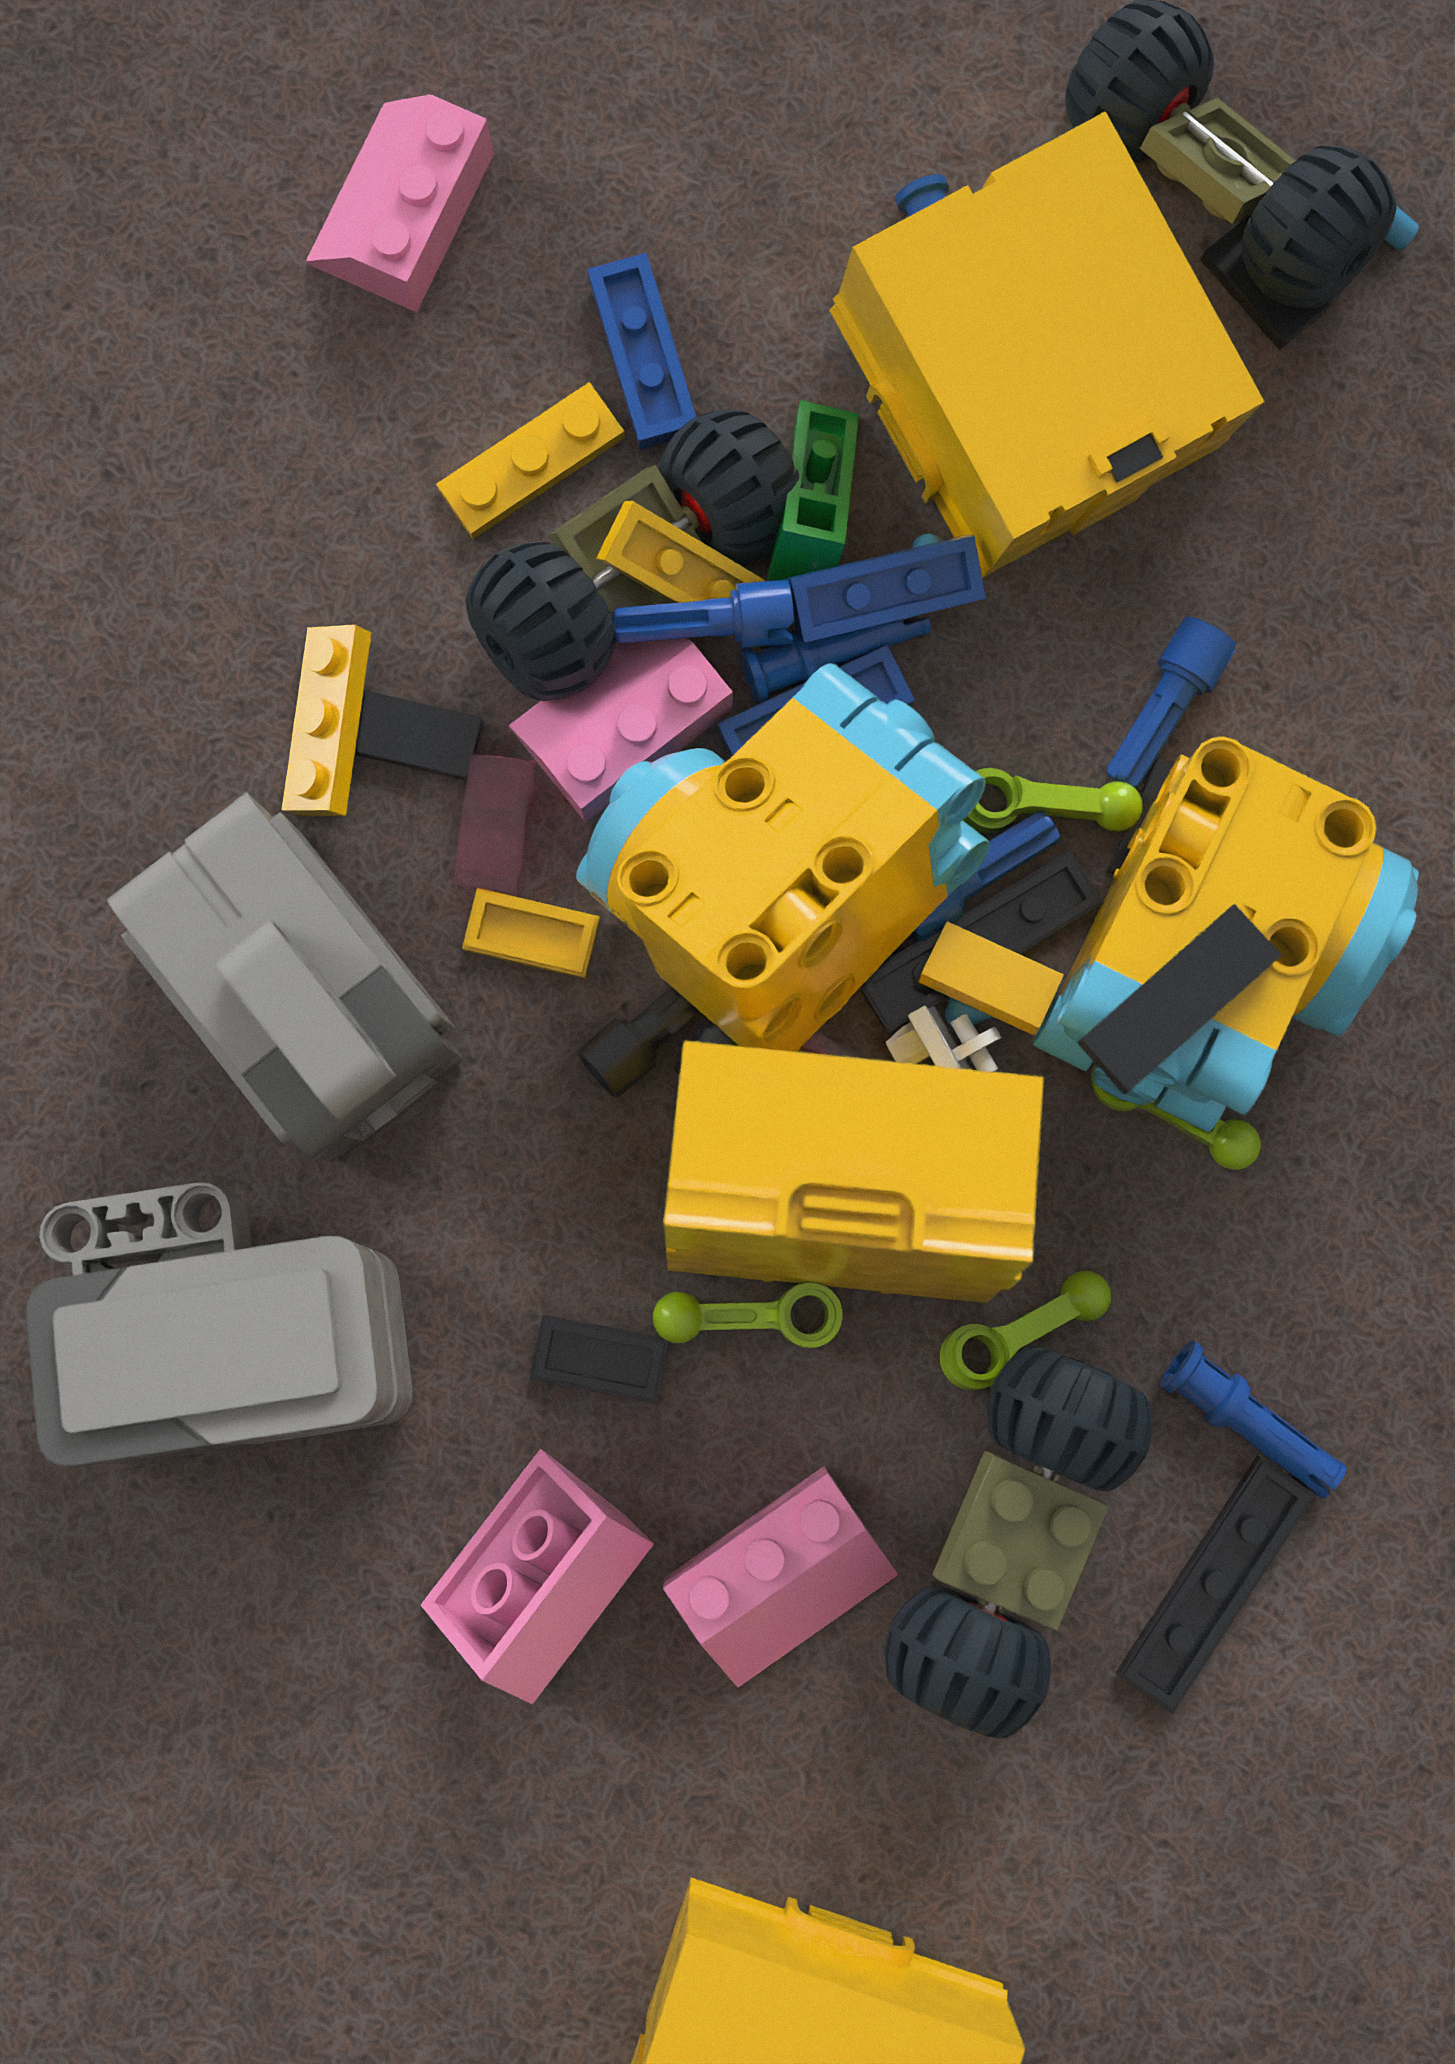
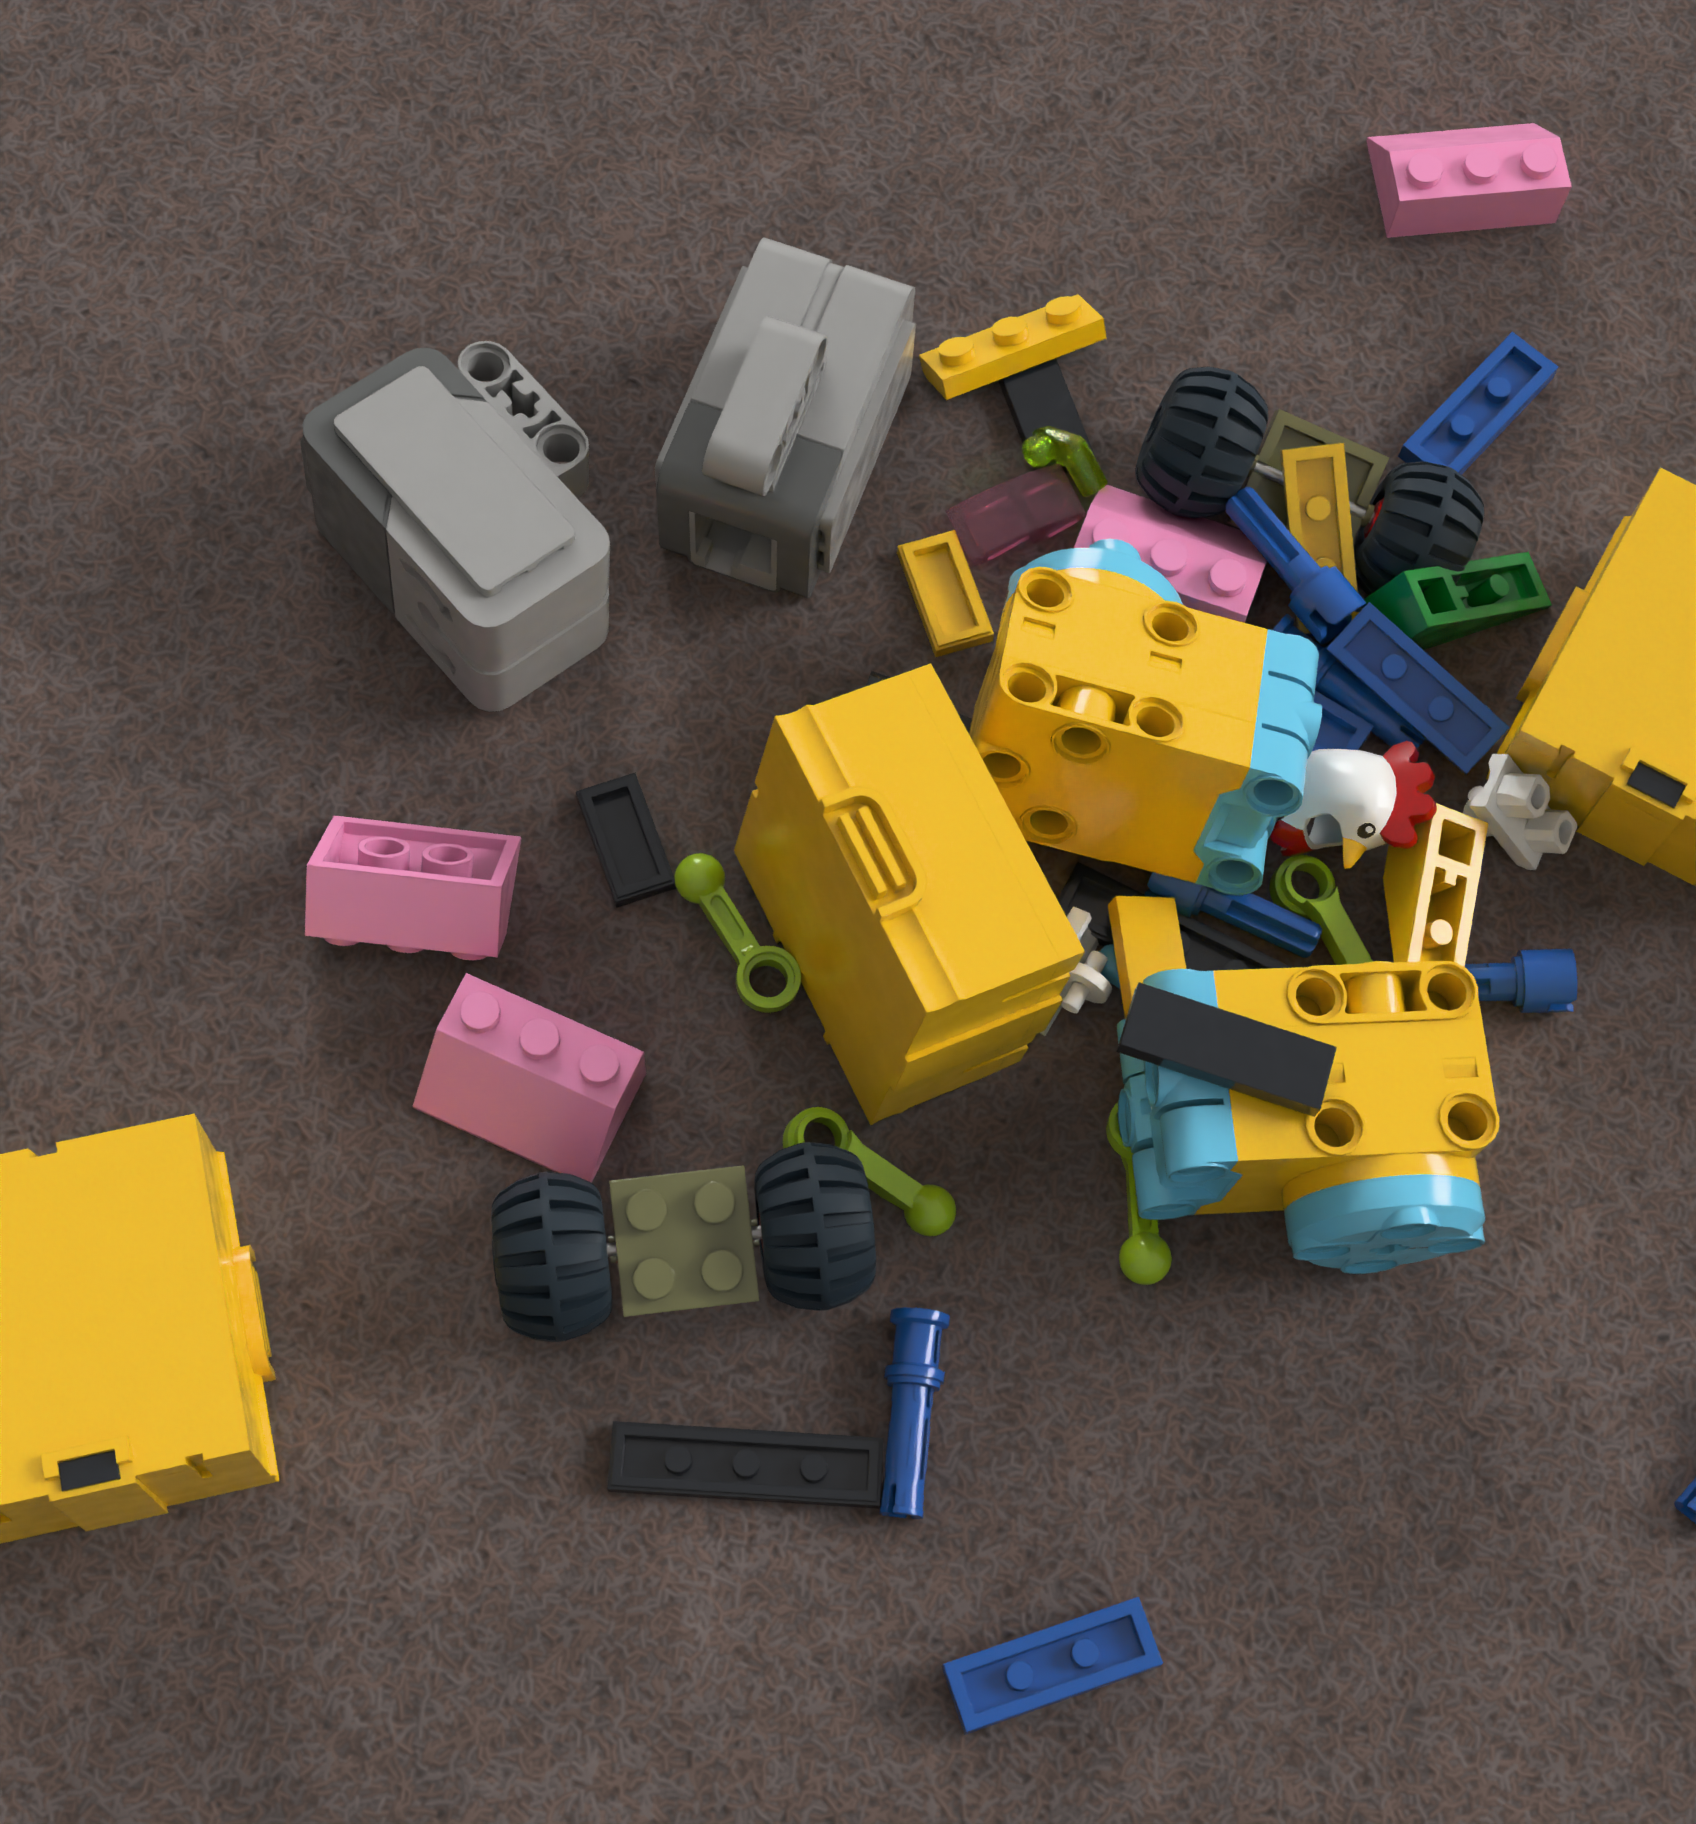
camera: 55 degrees right, 15 degrees down
(467, 739) = (1068, 450): none -> clear neon green arm
(531, 460) = (1329, 381): yellow plate -> none
(972, 695) = (1359, 802): none -> piece
(1042, 579) = (1520, 814): none -> white hips
(1081, 706) = (1435, 888): none -> yellow slope

